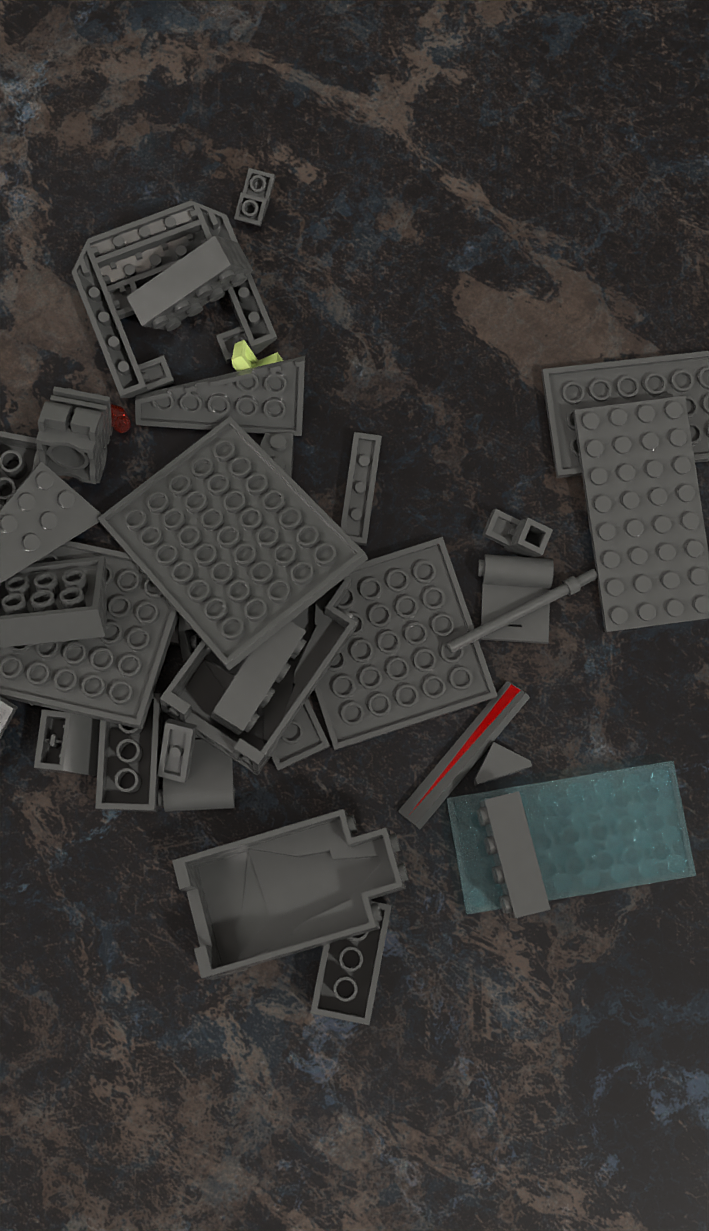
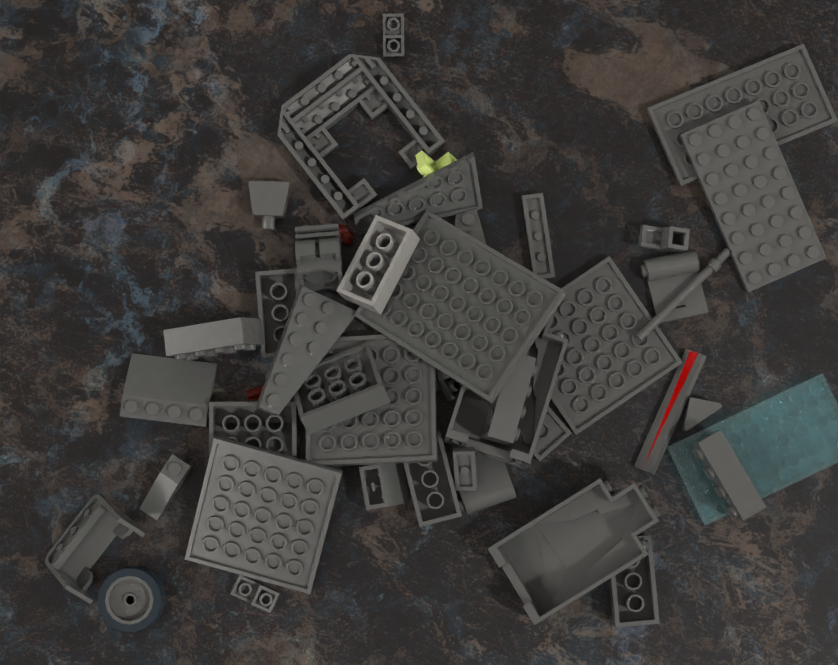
camera: 10 degrees left, 5 degrees up
(38, 352) = (269, 201): none -> dark grey torso
(145, 462) = (378, 264): none -> light grey brick
(190, 284) = (371, 121): dark grey brick -> none

